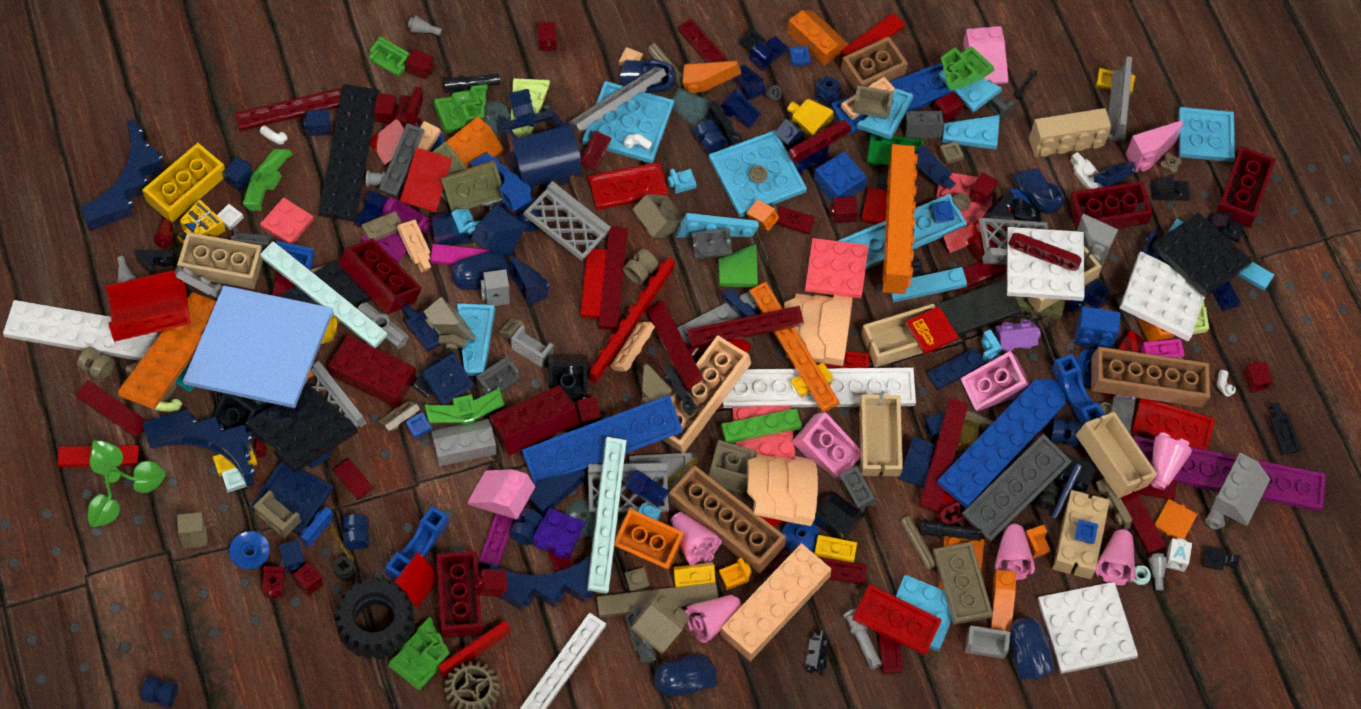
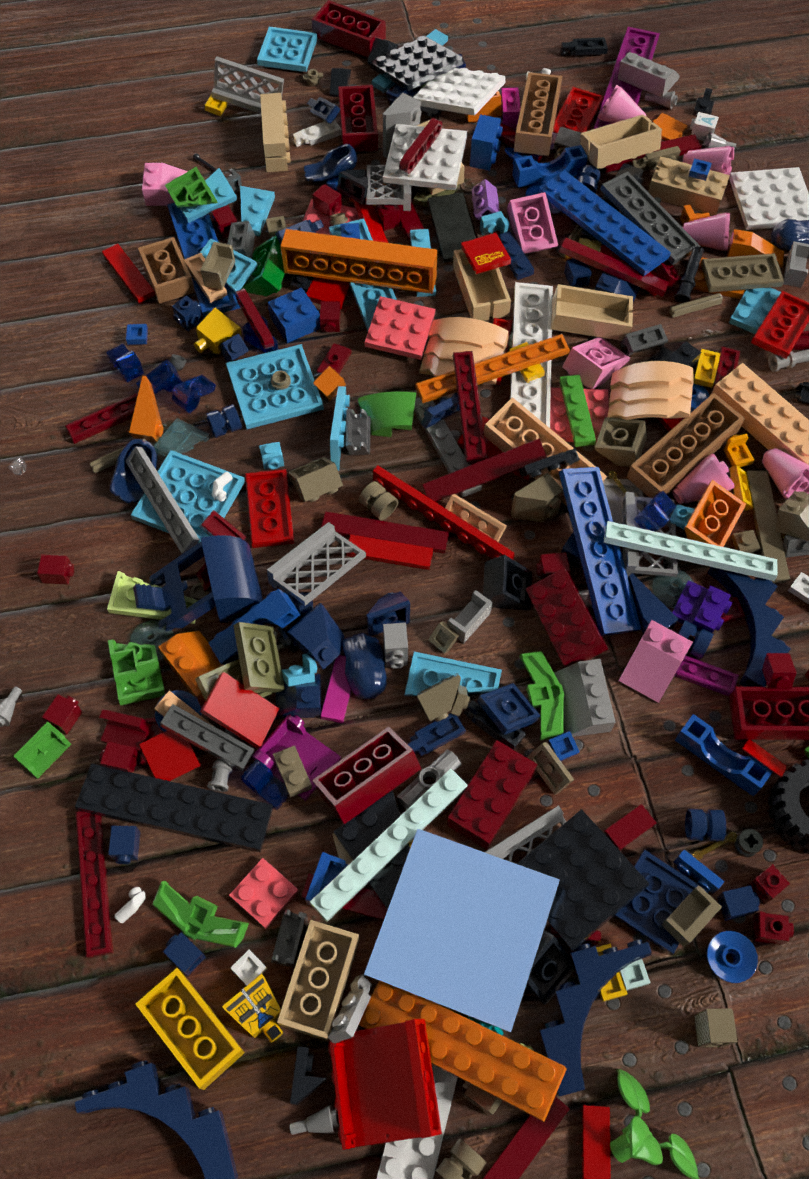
camera: 80 degrees left, 0 degrees up
(164, 235) = (263, 1061): dark red cone -> none
(415, 244) = (322, 733): light nougat hinge -> none
(461, 82) = (100, 667): black pin -> none
(501, 375) = (504, 657): dark grey hinge -> none
(630, 54) = (101, 490): light nougat plate -> none
(725, 126) = (196, 413): black hinge -> none
(751, 39) = (108, 373): black plate -> none
(817, 35) = (113, 318): orange slope -> none
(1066, 491) = (647, 186): dark blue bar -> none
(1151, 145) = (300, 78): bright pink slope -> none
(1257, 376) = (534, 53): dark red brick -> none

